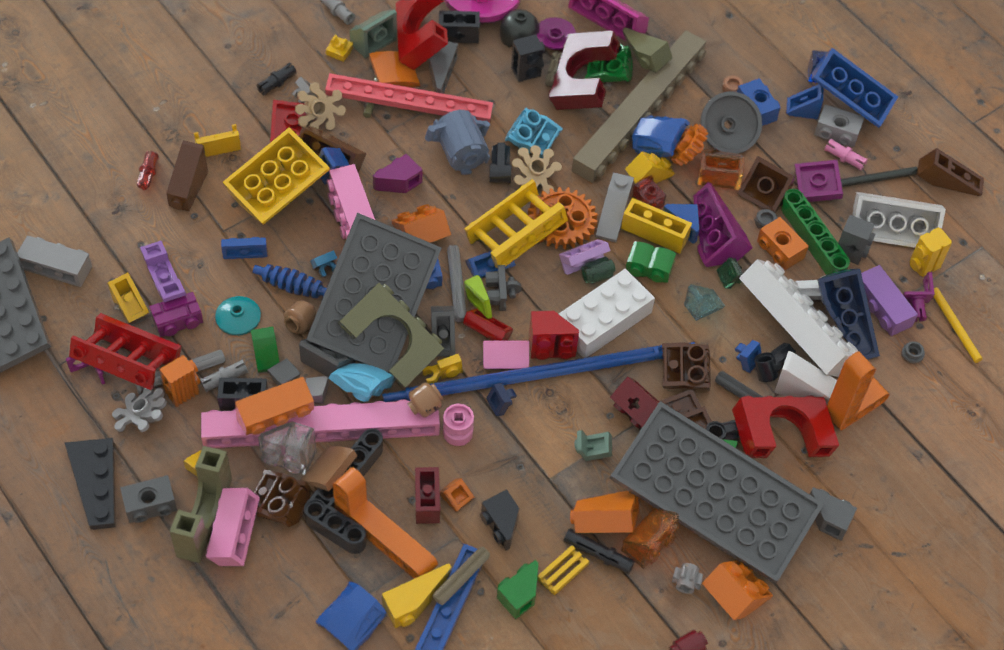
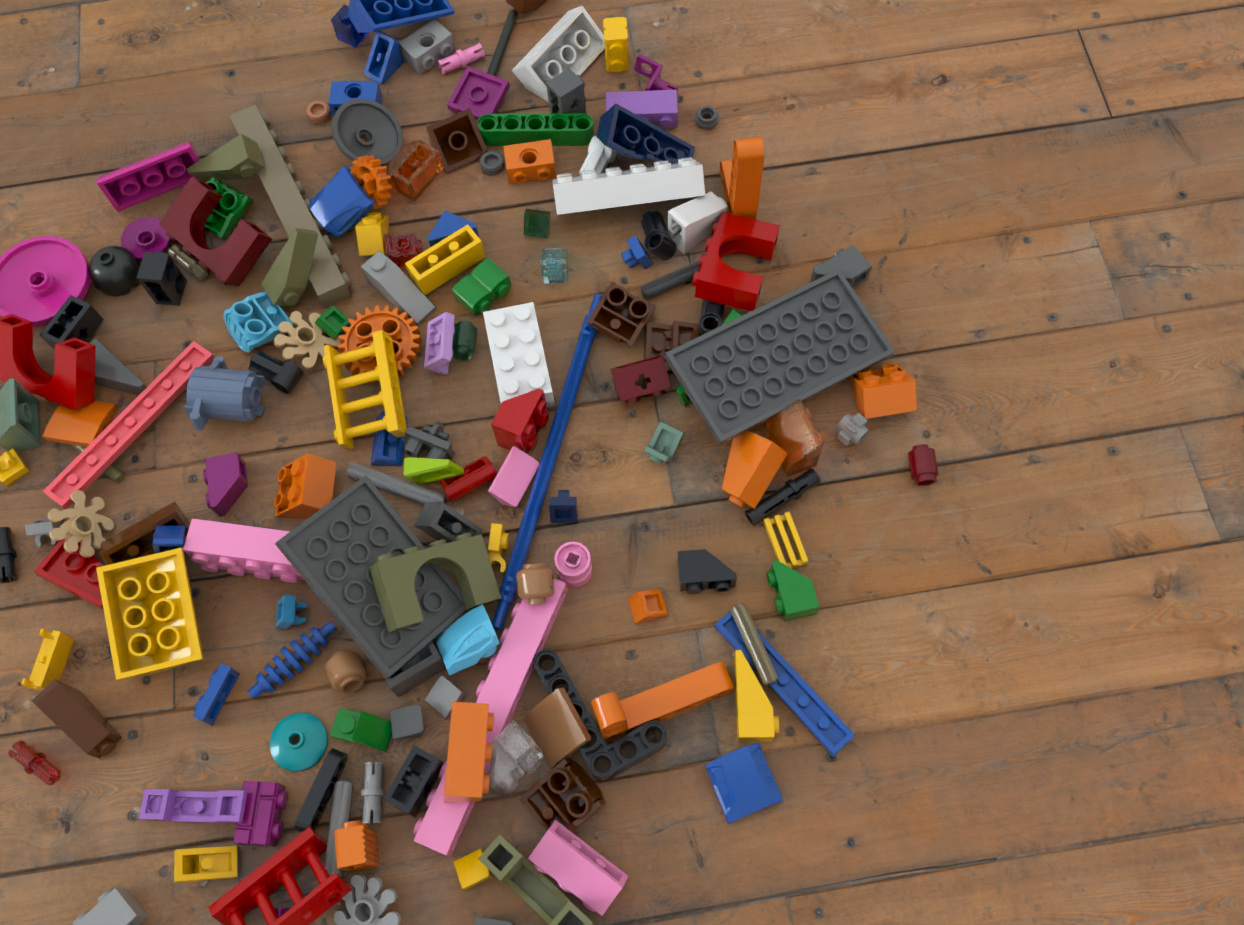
camera: 55 degrees left, 10 degrees up
(206, 343) = (321, 790): none -> black beam
(427, 495) = (642, 635): dark red brick -> none
(560, 178) = (332, 322): none -> green tile
(582, 130) = (291, 269): none -> olive slope
(718, 229) = (492, 209): magenta wedge -> none
(956, 325) = (701, 69): yellow bar -> none

